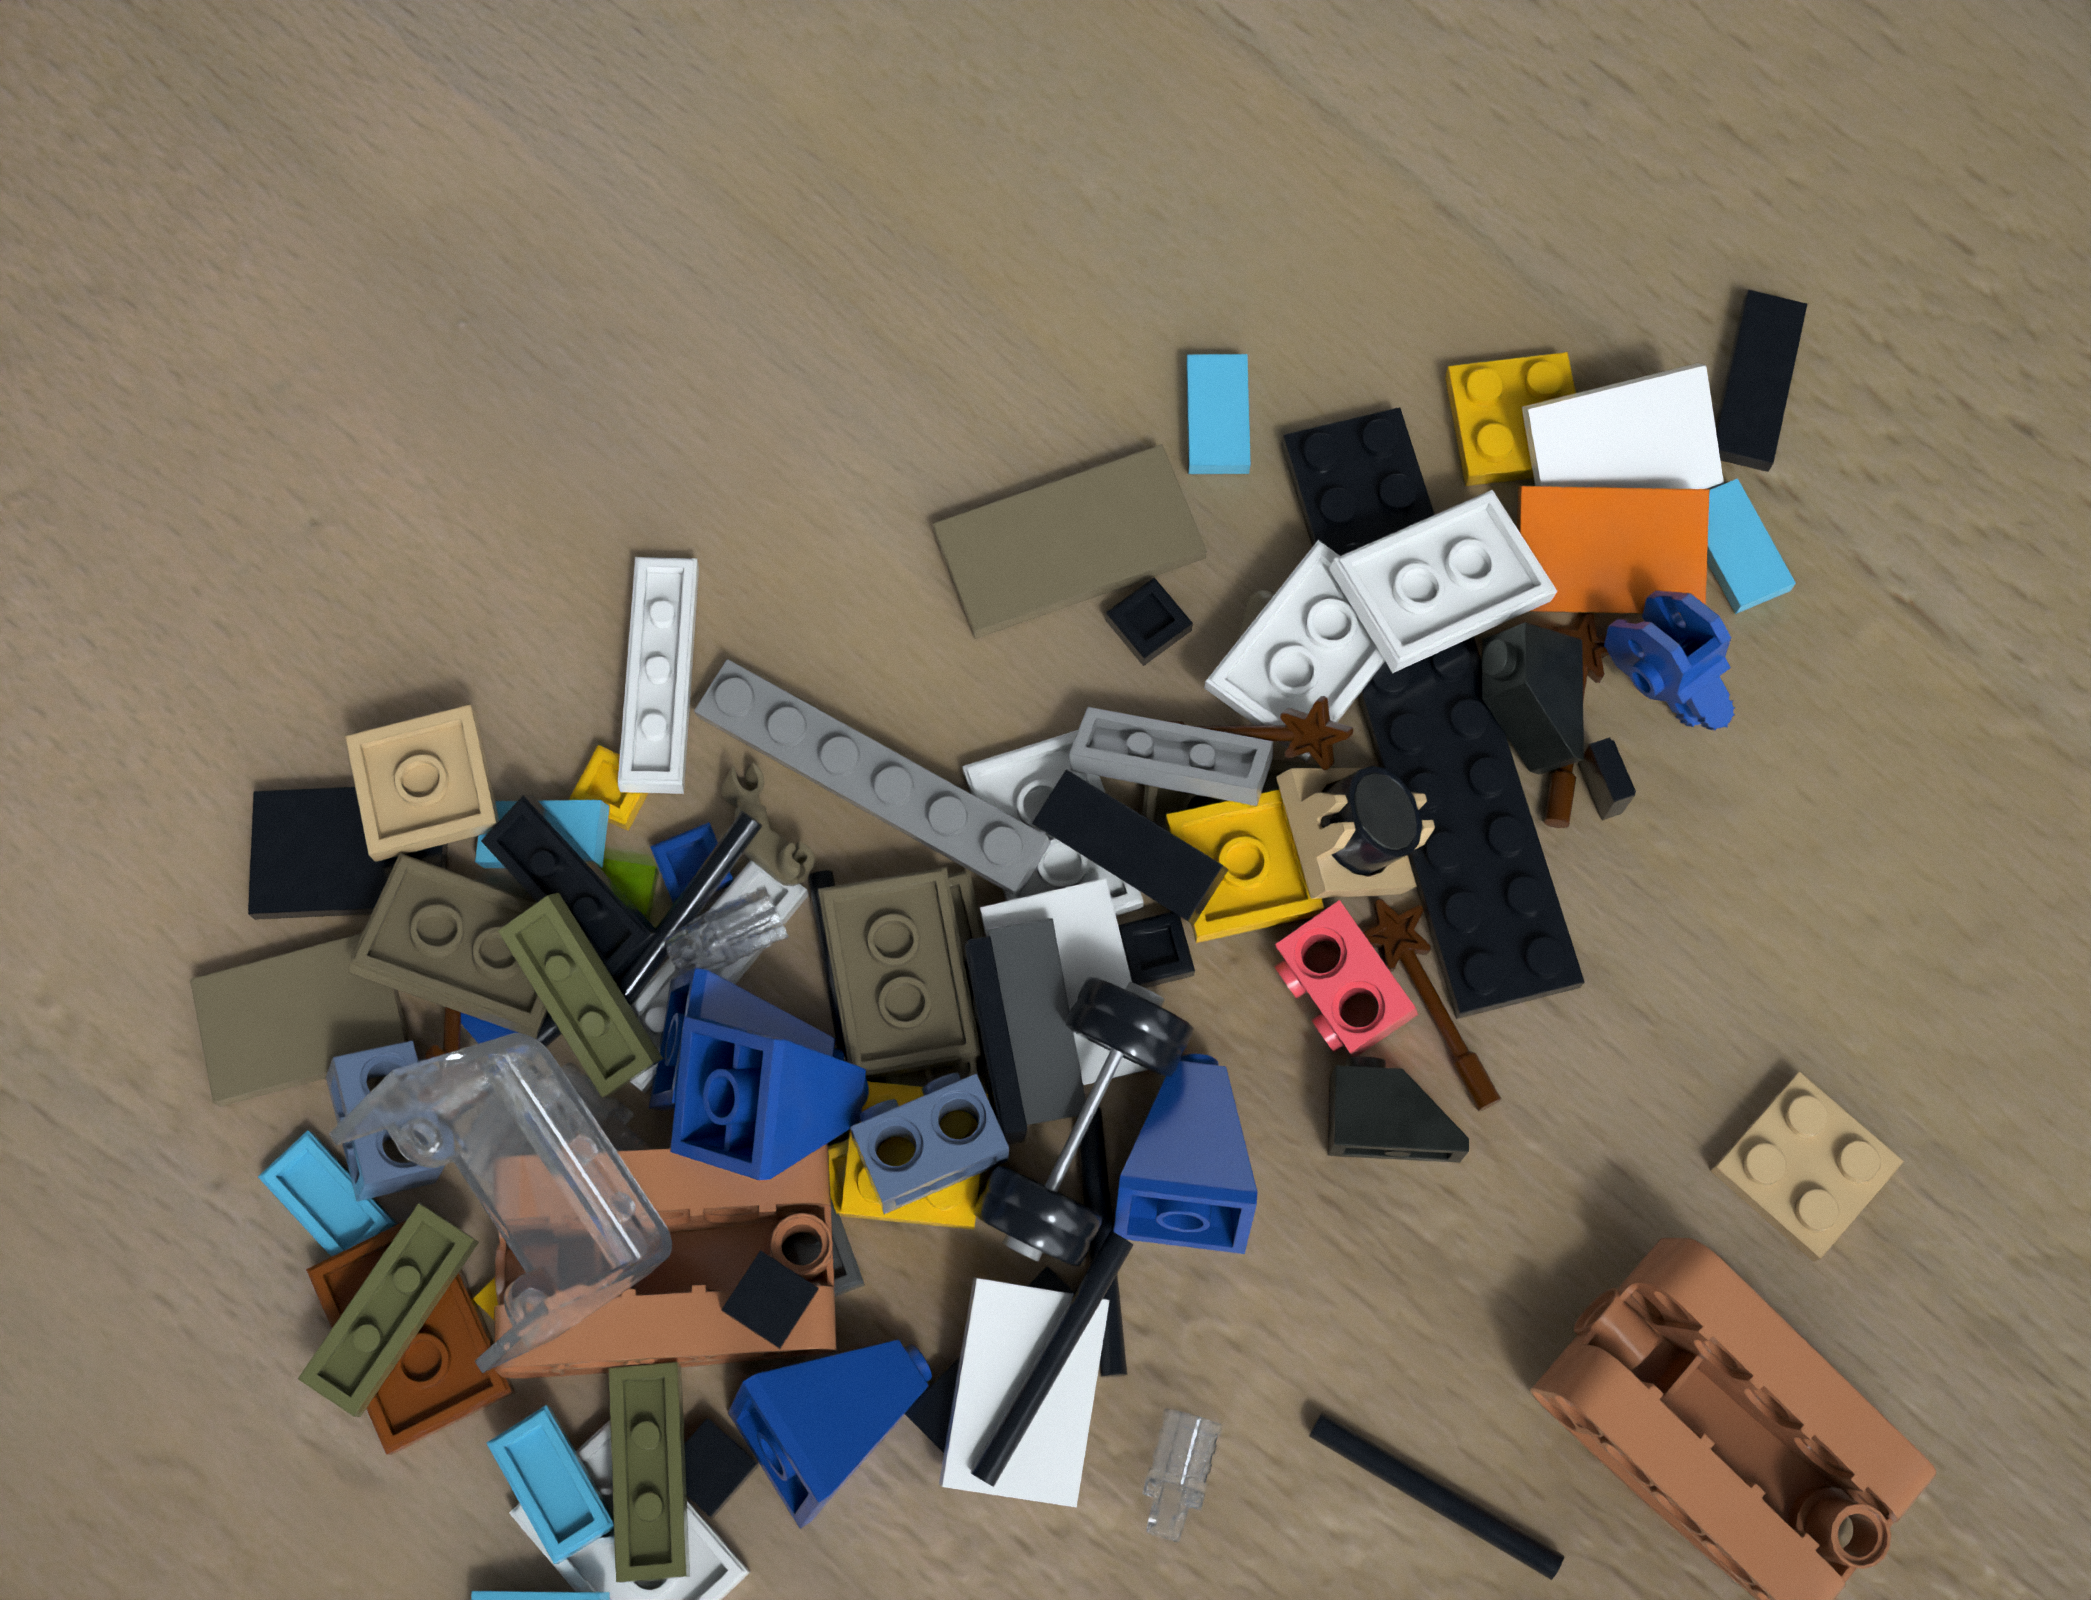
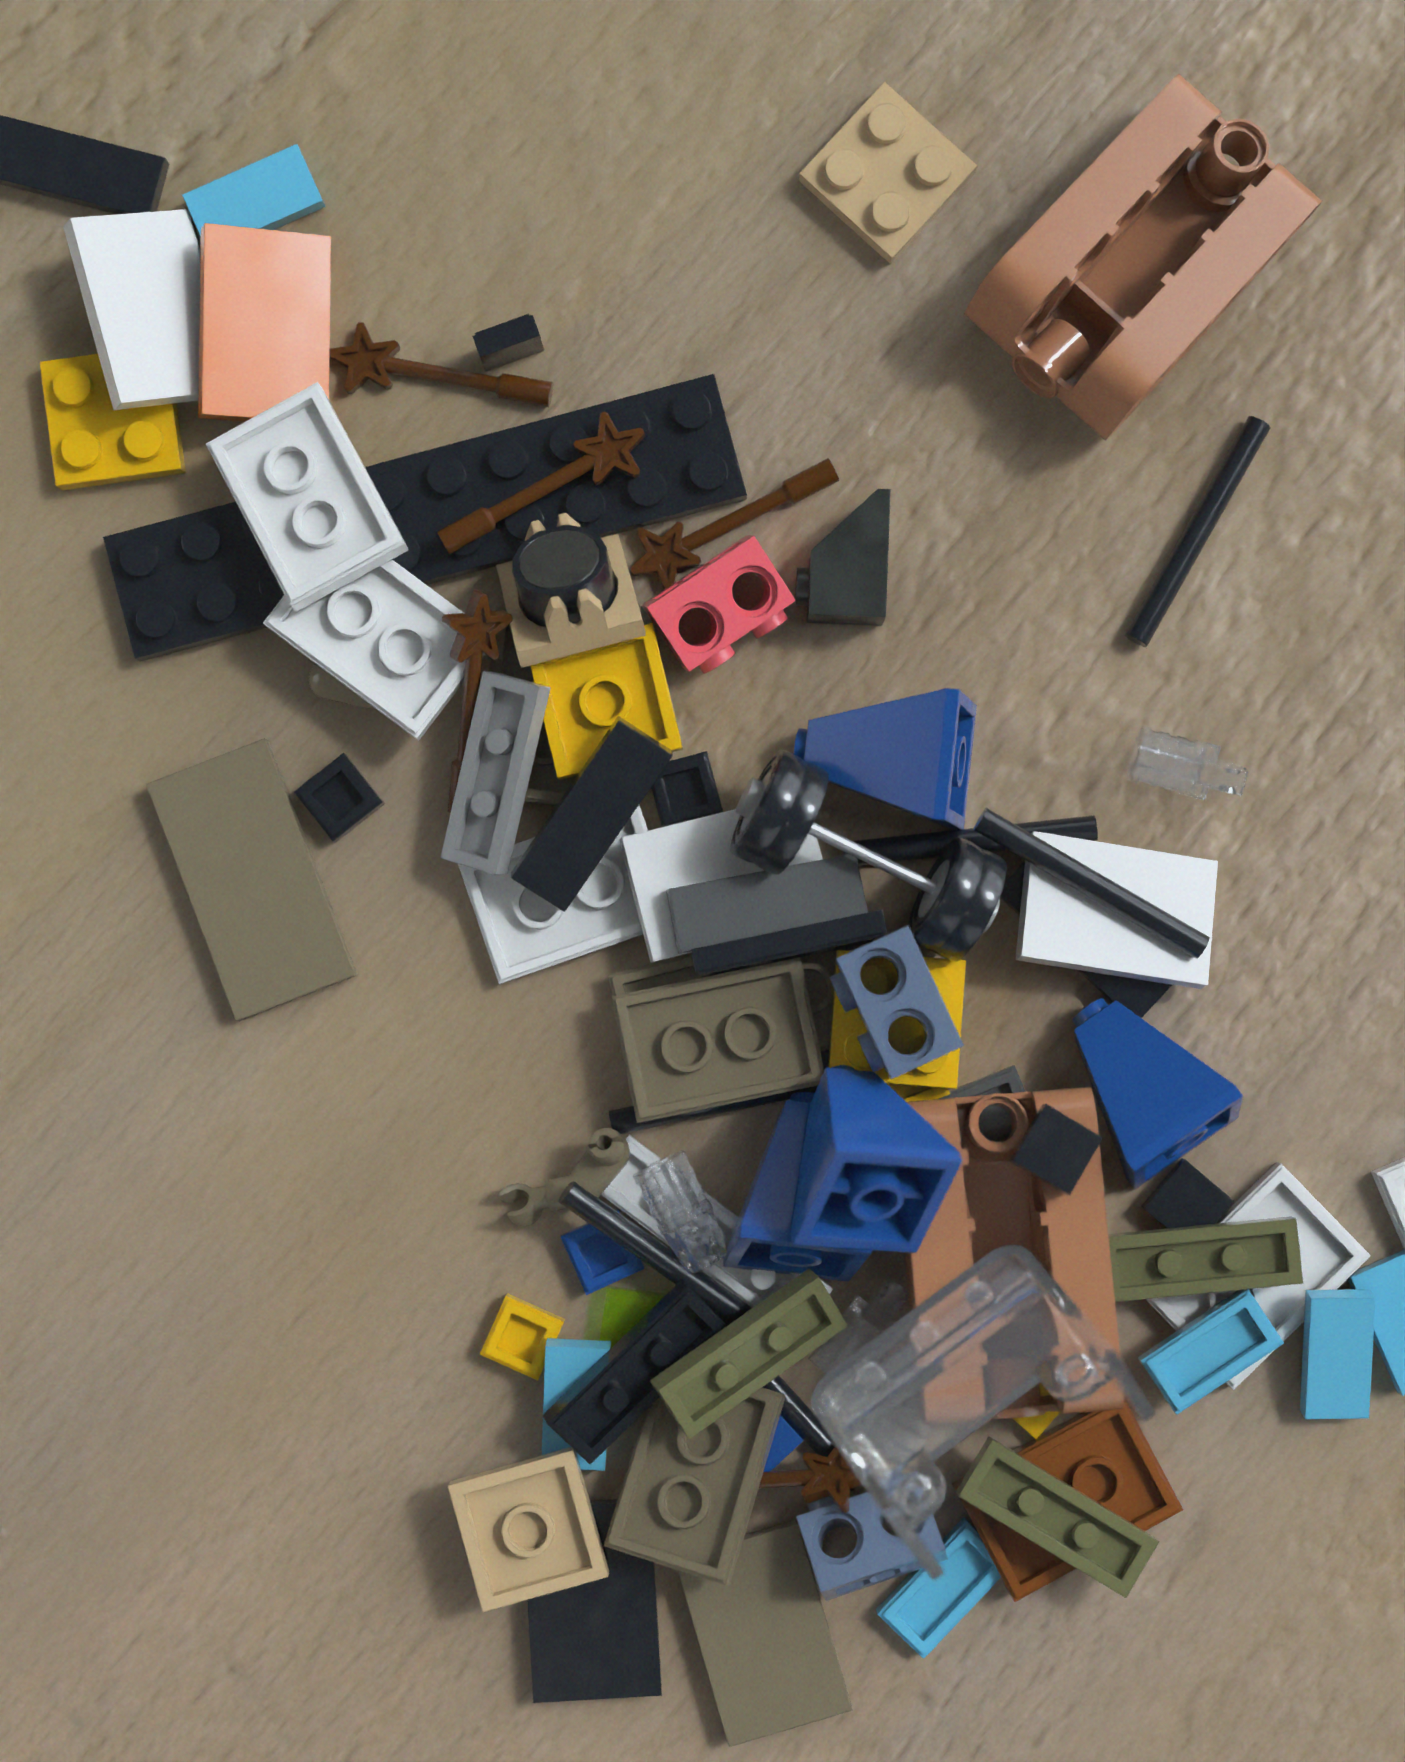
camera: 85 degrees left, 15 degrees up
(658, 676) = (403, 1296): white tile -> none
(873, 778) = (512, 1076): light grey plate -> none
(1218, 414) = (108, 726): medium azure tile -> none
(1495, 866) = (602, 453): none -> reddish brown piece
(1536, 693) = (423, 407): pearl dark grey slope -> none
(1677, 657) = (387, 266): blue hinge -> none

